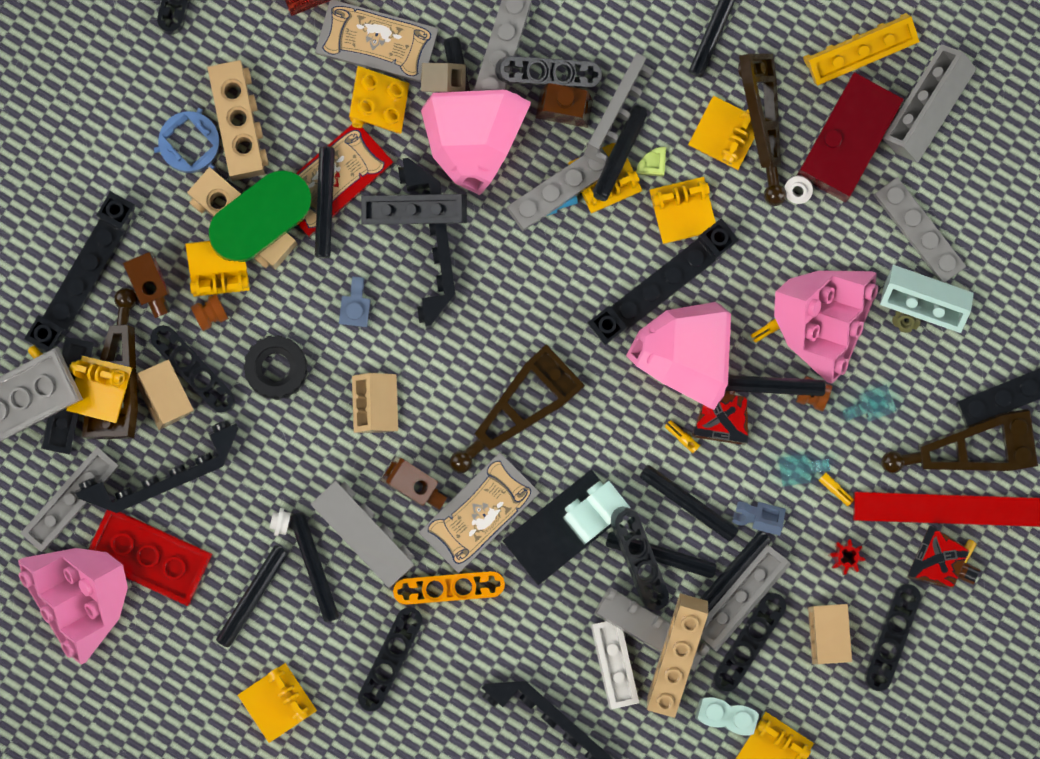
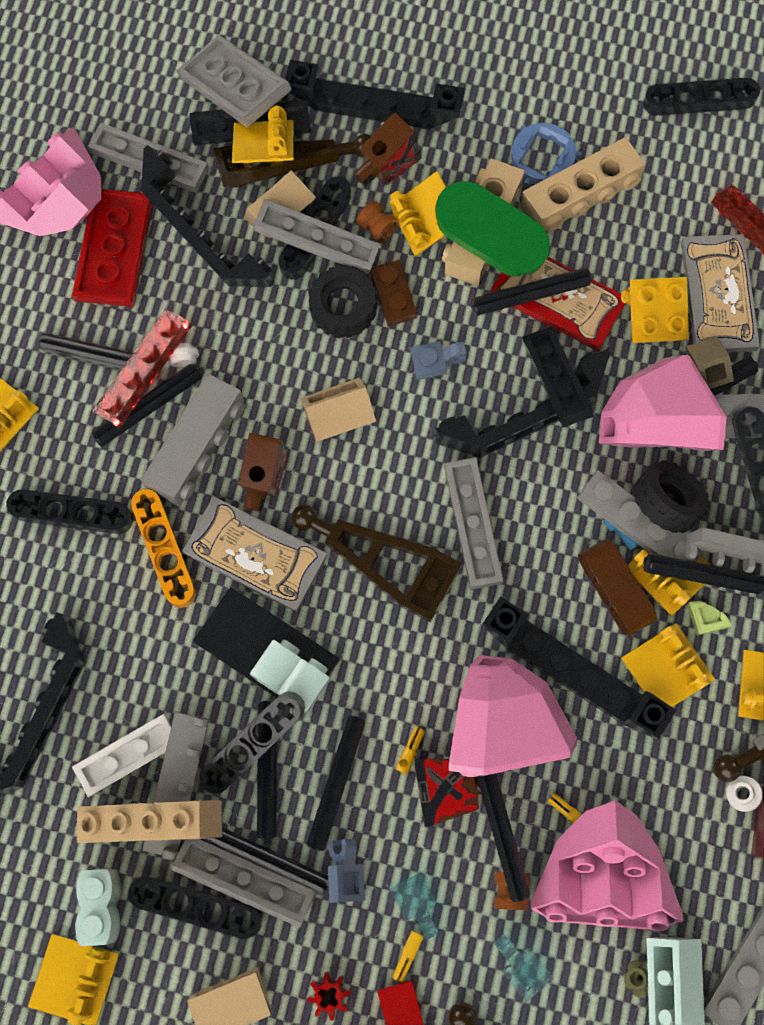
camera: 80 degrees right, 10 degrees down
(211, 371) = (316, 236): none -> light grey plate
(280, 320) = (393, 293): none -> reddish brown plate
(285, 559) = (142, 368): none -> clear red plate
(513, 323) = (473, 523): none -> light grey plate
(551, 171) = (662, 509): none -> black tyre
(564, 105) = (731, 496): reddish brown torso -> none
(605, 225) = (617, 587): none -> reddish brown beam

